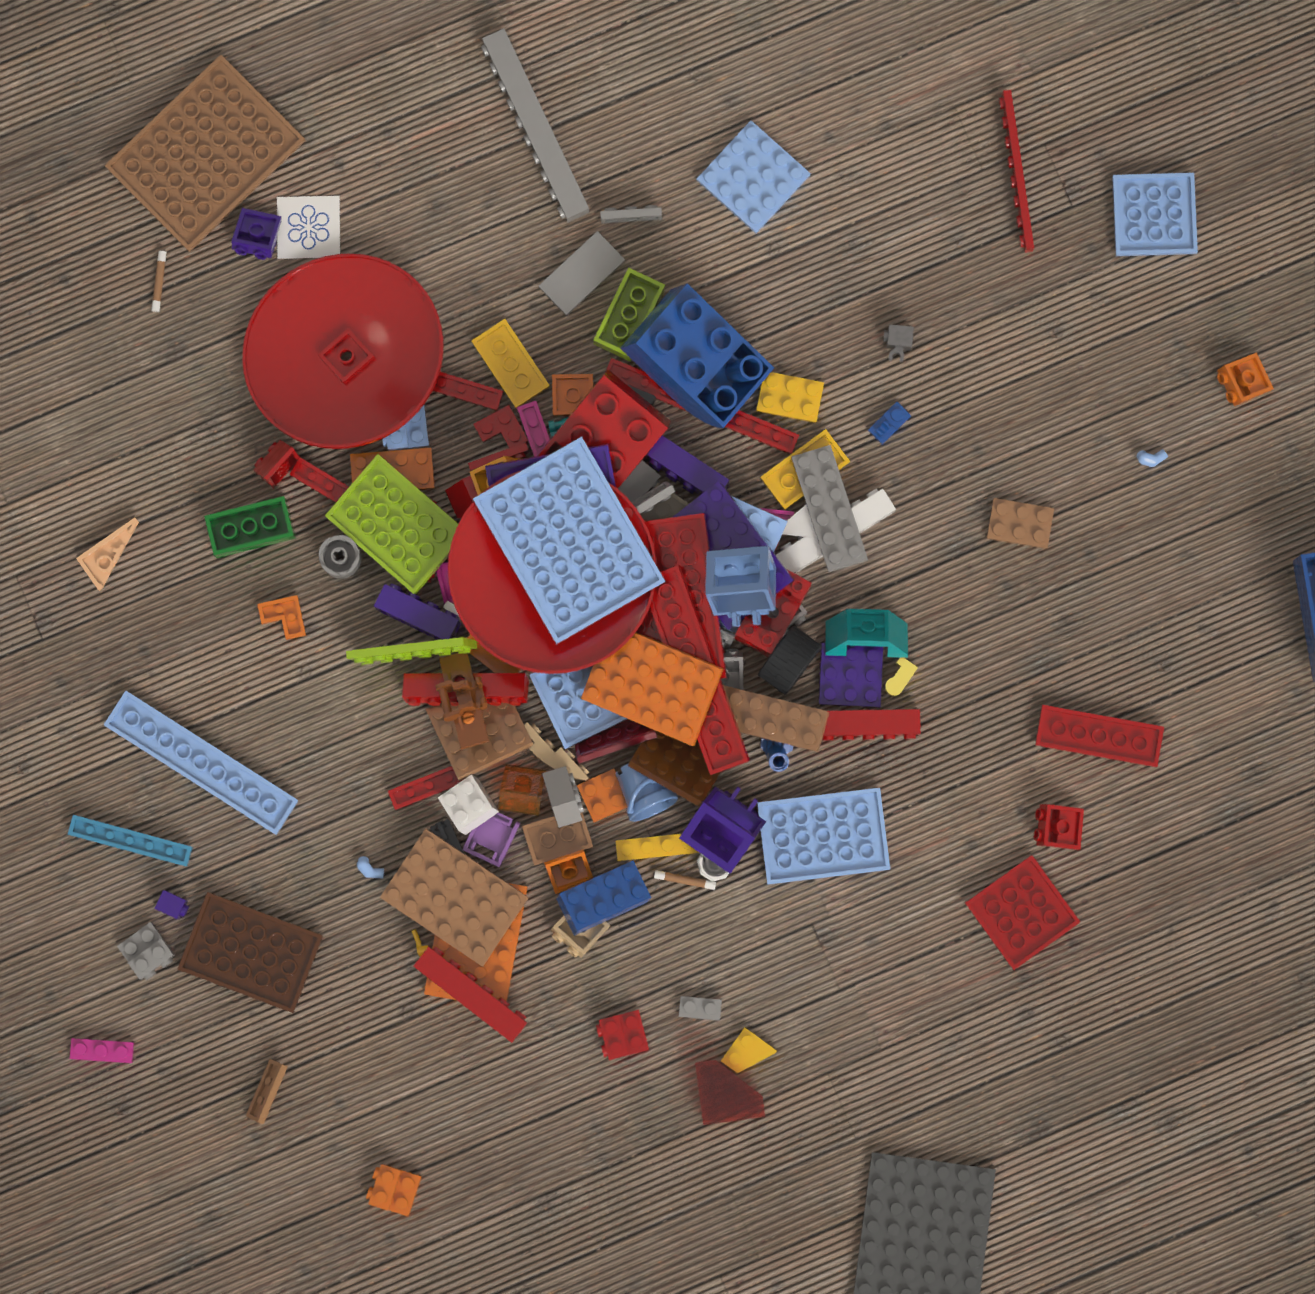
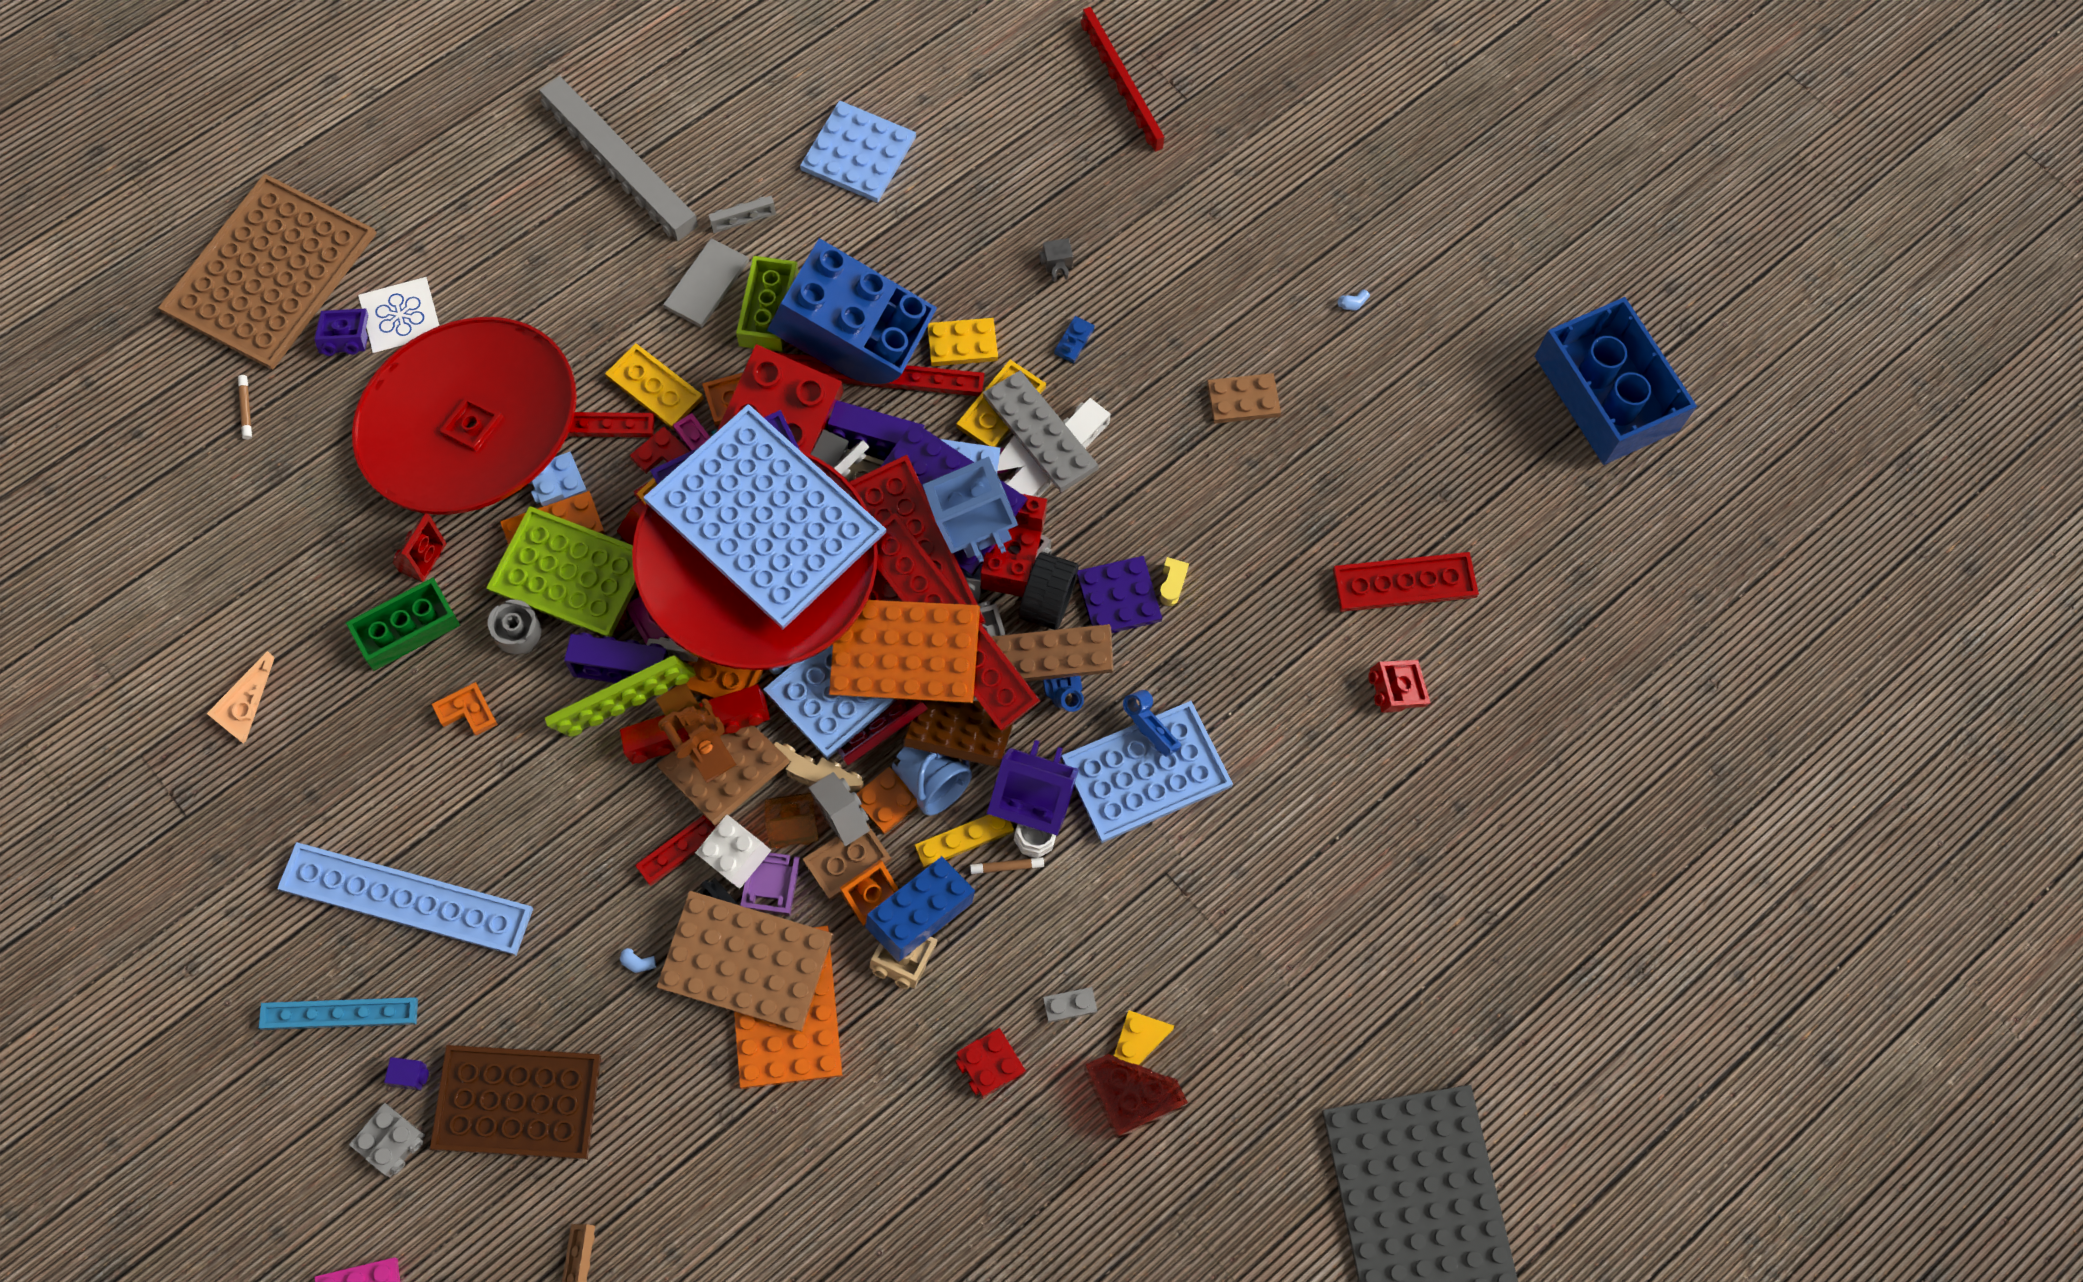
camera: 25 degrees left, 15 degrees down
(318, 480) = (469, 556): red plate -> none
(420, 949) = (725, 1037): yellow hand -> none
(470, 994) = (796, 1067): red brick -> none
(831, 784) = (1149, 724): none -> blue plate
(866, 628) = (1117, 537): teal slope -> none
(872, 723) = (1161, 636): red brick -> none
(1022, 912) = (1393, 788): red plate -> none
(1154, 214) = (1271, 83): light blue plate -> none
(1244, 379) = (1417, 204): orange plate -> none

